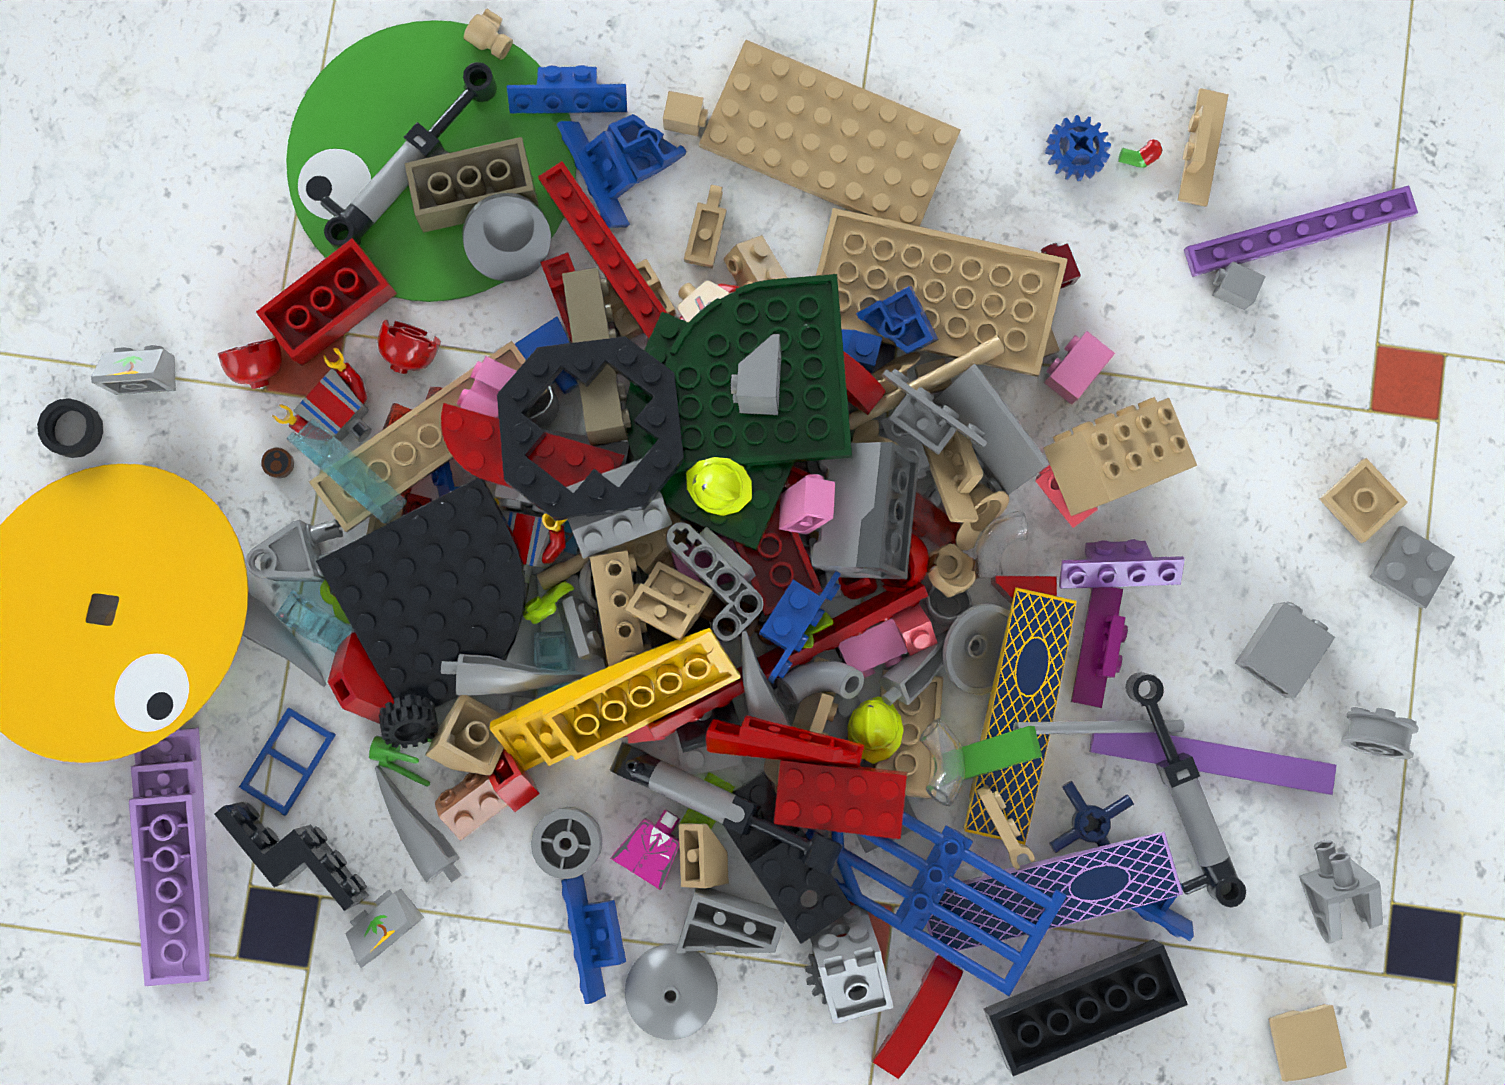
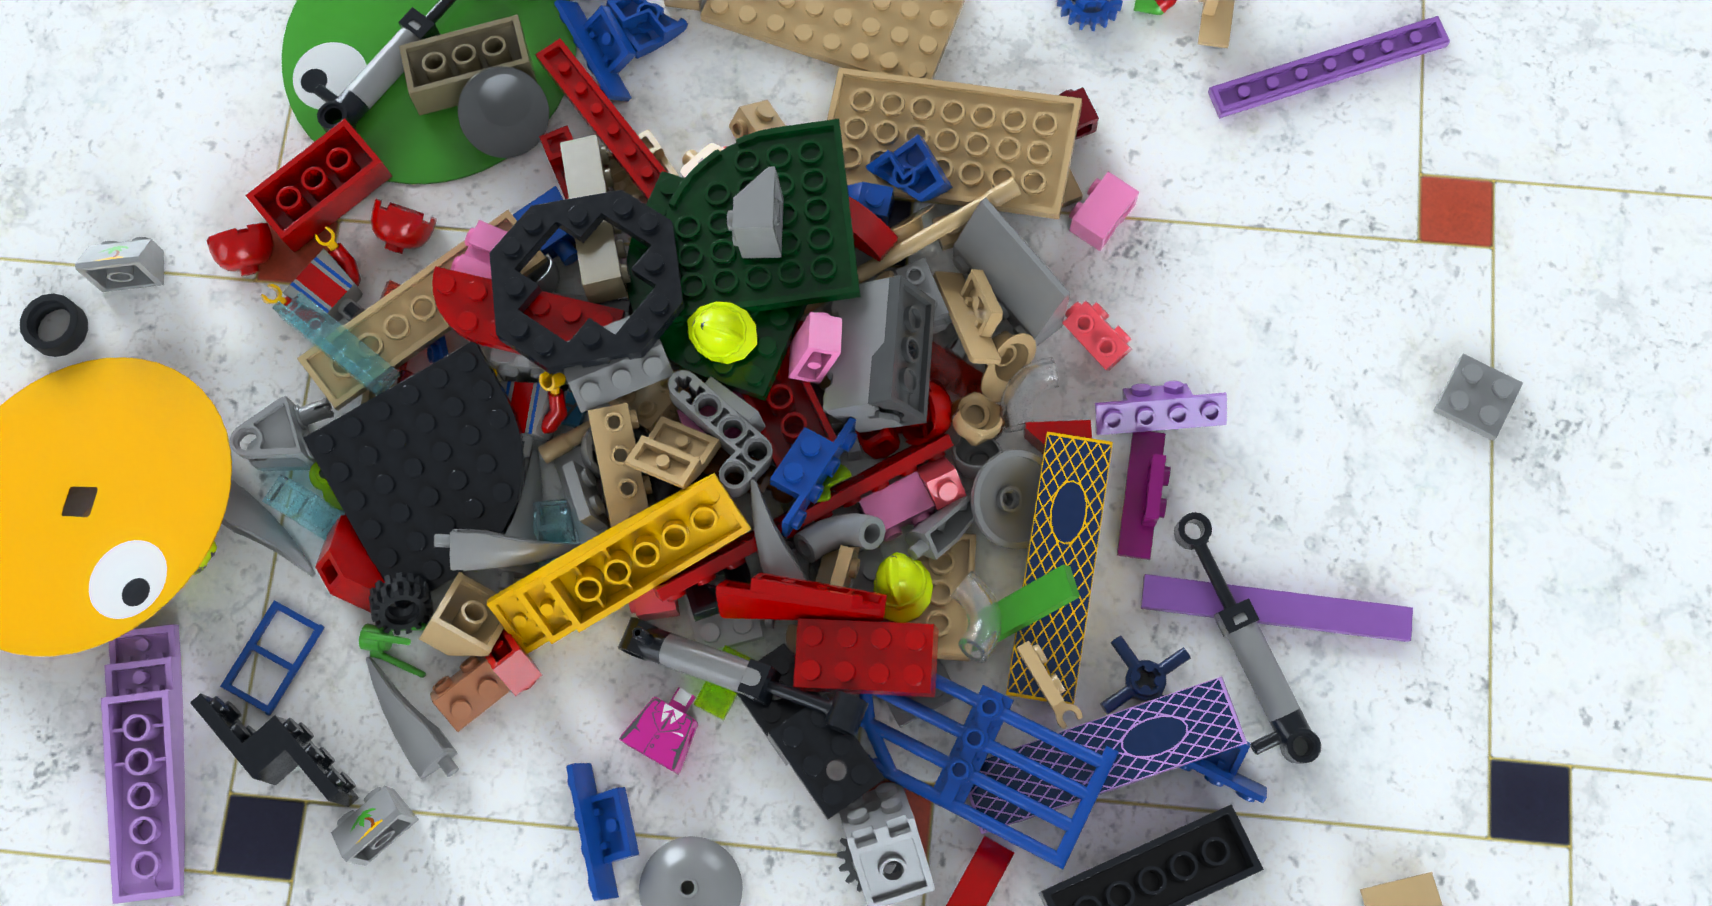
camera: 10 degrees right, 10 degrees down
(277, 463) = (267, 350): tile -> none
(540, 608) = (538, 480): lime plate -> none
(550, 851) = (591, 730): light grey wheel -> none
(701, 857) = (719, 733): tan slope -> none
(706, 230) = (709, 97): tan plate -> none
(729, 924) = (749, 806): light grey wedge -> none
(925, 419) = (940, 261): light grey bracket -> none
(1090, 727) = (1152, 574): light grey piece -> none
(1119, 454) = (1147, 288): tan brick -> none
(1237, 285) = (1265, 121): light grey brick -> none
(1285, 649) = (1346, 487): light grey brick -> none
(1332, 884) = (1424, 726): light grey piece -> none
(1363, 500) = (1417, 330): tan plate -> none
(1380, 733) = (1455, 567): light grey wheel -> none

